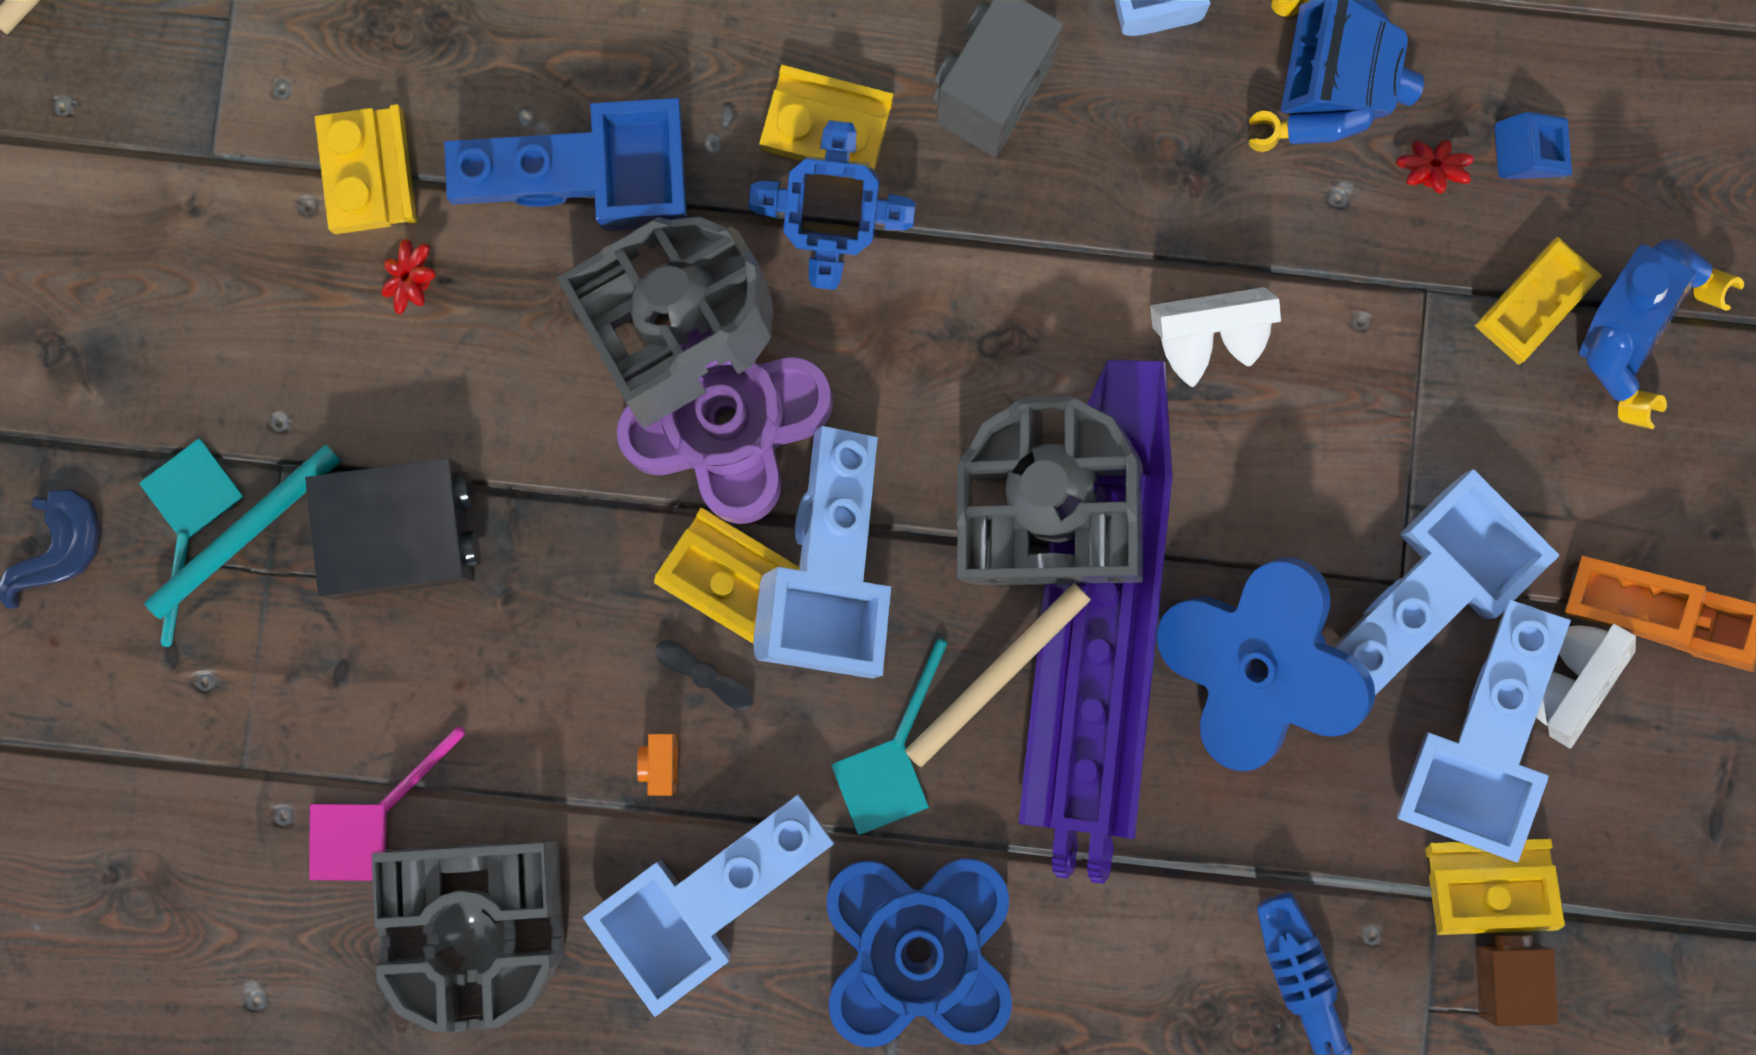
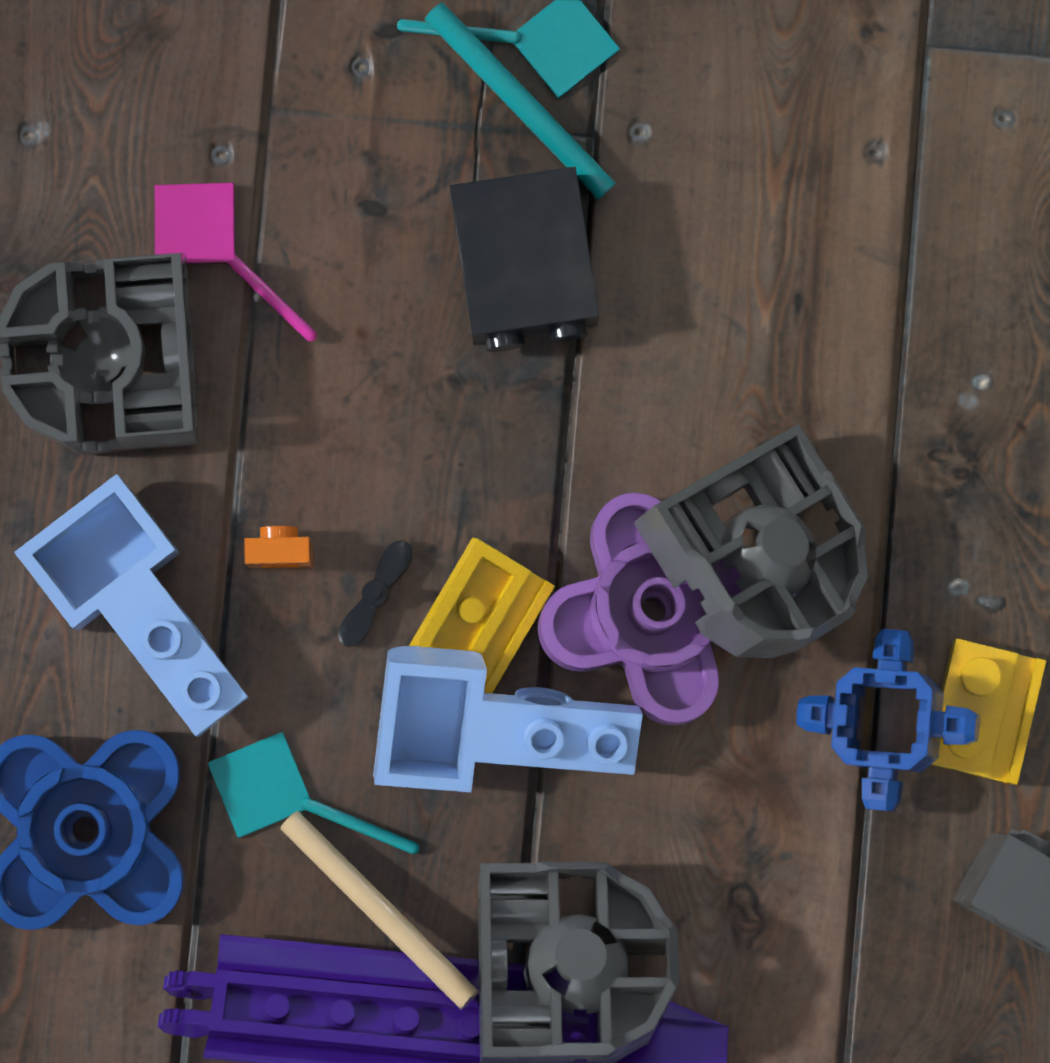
camera: 85 degrees right, 0 degrees up
(365, 169) = (916, 212): yellow plate -> none
(408, 275) = (798, 264): red plant -> none
(626, 162) = (928, 495): blue plate -> none

